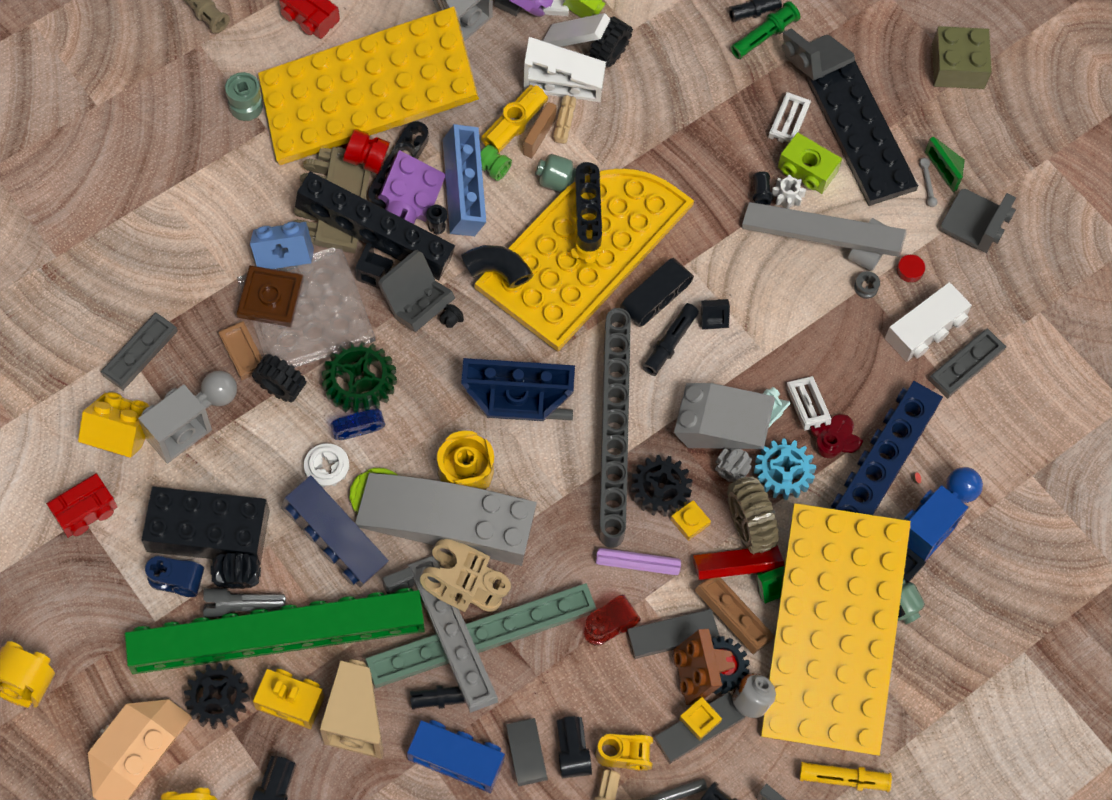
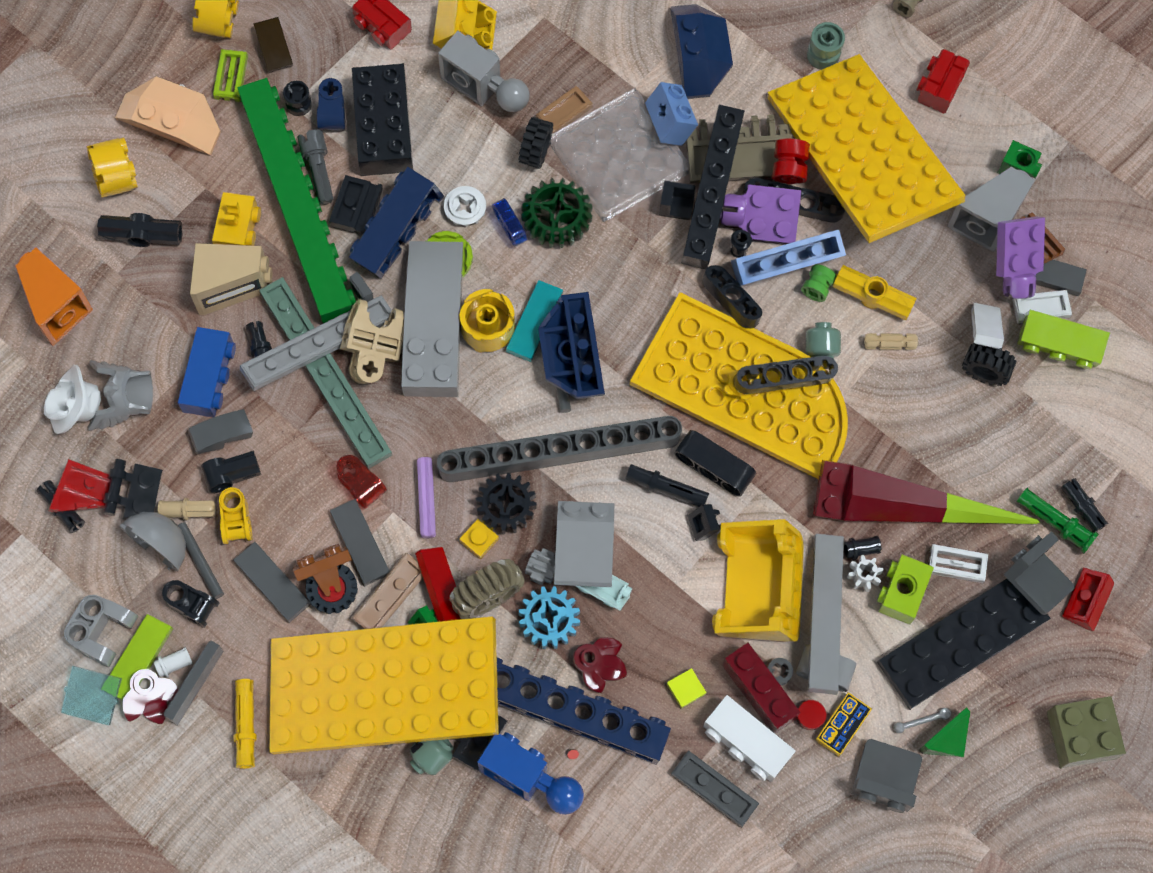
camera: 80 degrees right, 5 degrees up
(76, 624) = (273, 44): none -> dark brown slope
(123, 687) = (228, 94): none -> lime tile
(139, 351) = (543, 28): dark grey tile -> none
(150, 604) = (297, 98): none -> black wheel
(207, 209) = (701, 49): none -> dark blue wedge
(209, 704) = (231, 157): black gear -> none
(235, 571) = (341, 151): black gear -> none
(270, 296) = (618, 117): reddish brown tile -> none
(298, 571) = (355, 204): none -> black plate
(414, 292) = (654, 238): dark grey bracket -> none
(451, 316) = (642, 280): black piece -> none
(463, 417) = (526, 335): none -> teal tile
(499, 260) = (703, 305): black cylinder -> none
(506, 224) = (747, 315): none -> black beam
(539, 130) = (868, 318): medium nougat tile -> none
(563, 71) = (939, 324): white wedge -> none
(700, 718) = (274, 576): yellow plate -> none
(716, 171) = (866, 495): none -> dark red plate
(754, 695) = (295, 623): light grey head -> none
(783, 280) = (761, 581): none -> yellow windscreen
(814, 419) = (608, 640): white tile -> none
(839, 27) = (1088, 598): none -> red slope
(870, 366) = (686, 688): none -> neon yellow tile
(883, 300) = (760, 688): none -> dark red brick
(925, 245) = (843, 724): none -> tile

